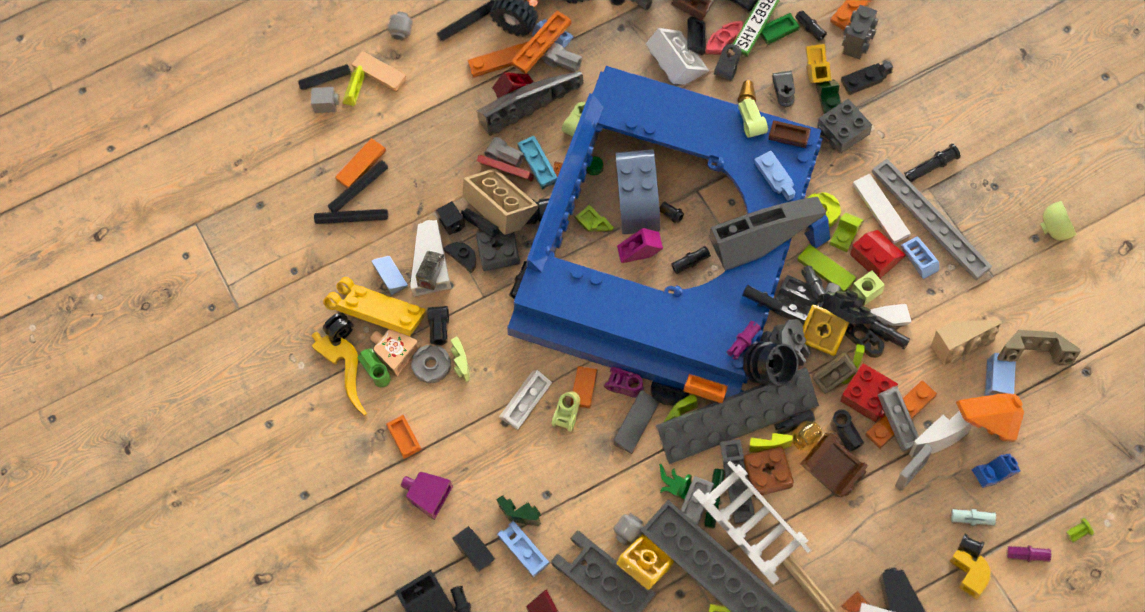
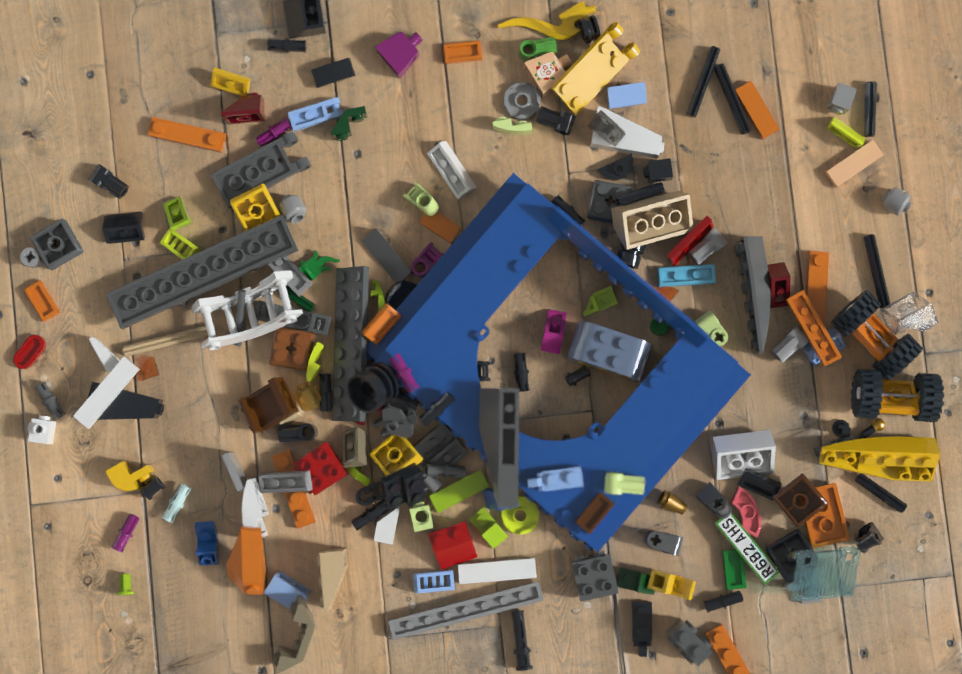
camera: 105 degrees right, 20 degrees up
(558, 582) = (274, 132): none -> magenta axle
(741, 533) = (240, 312): none -> dark grey bar

